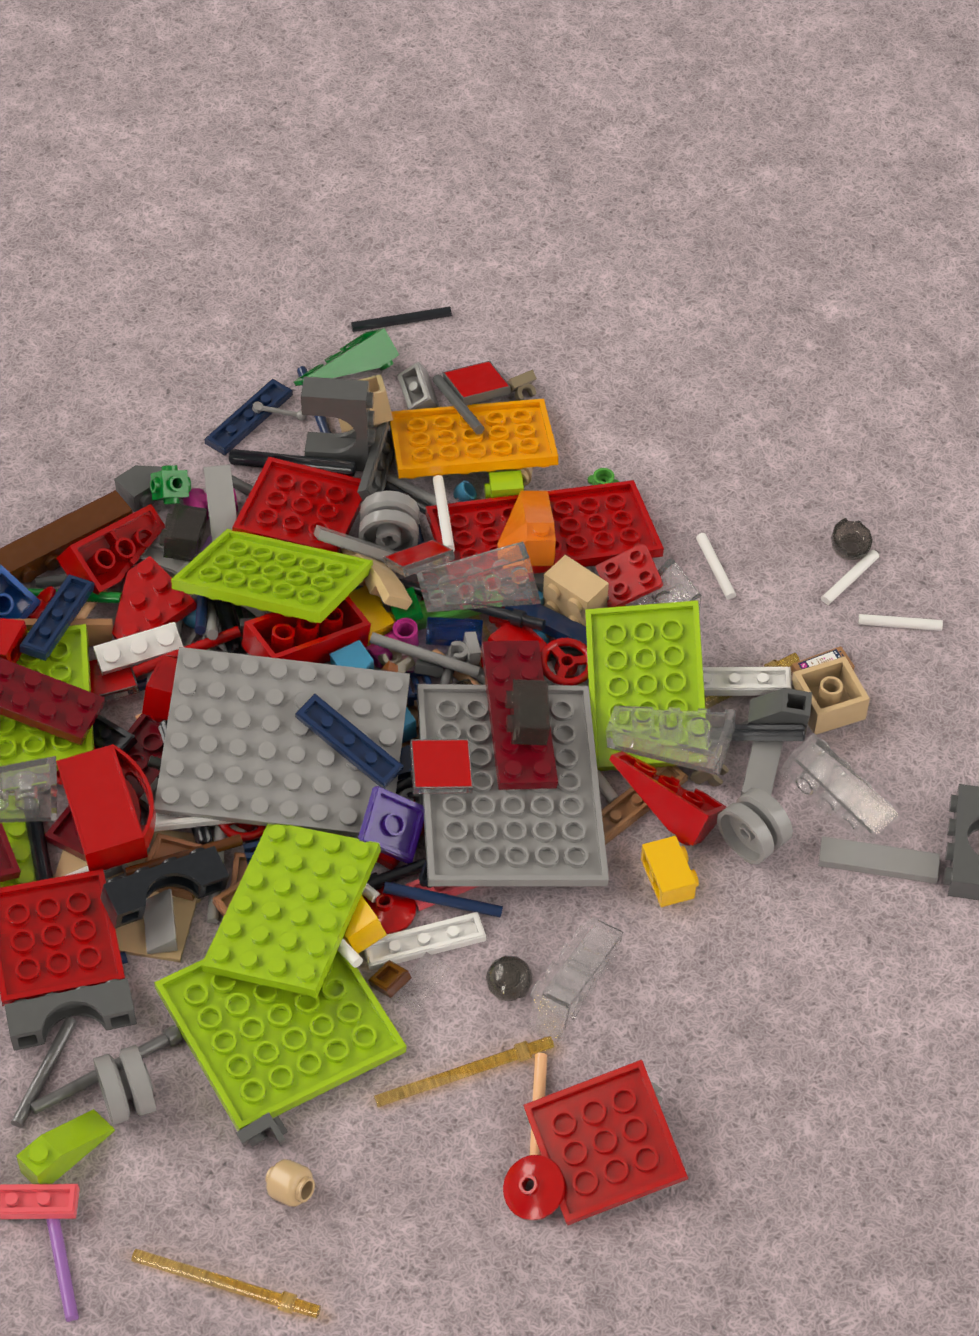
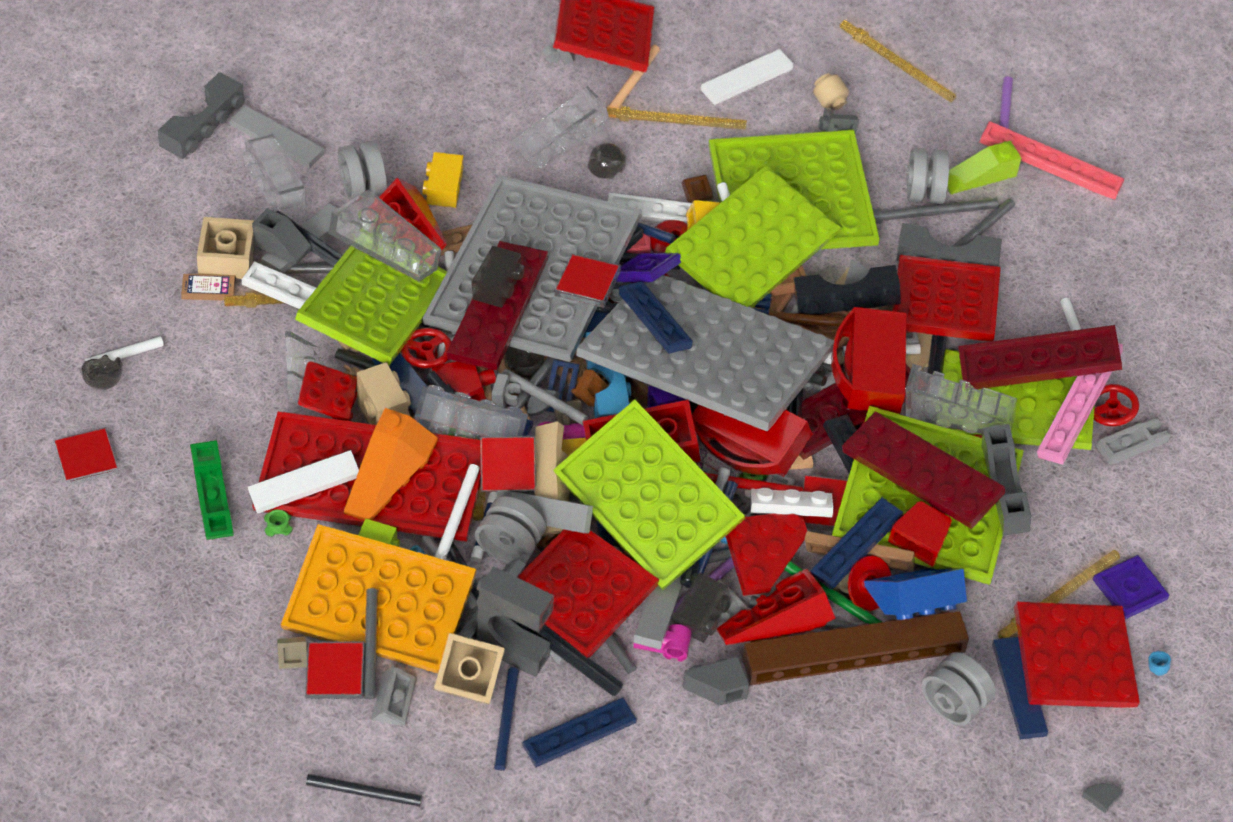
camera: 160 degrees left, 0 degrees up
(170, 484) = (699, 646): green brick -> none
(258, 407) = (568, 725): light grey hinge -> none
(364, 353) = (446, 745): wedge -> none
(403, 1173) = (746, 76): none -> white tile
(547, 1189) = (664, 31): red dish -> none
(598, 500) = (303, 482): none -> white tile
(673, 481) = (211, 490): none -> green slope
(715, 566) = (232, 407): white bar -> none
(808, 475) = (86, 456): none -> red tile
(900, 622) = (113, 299): white bar -> none

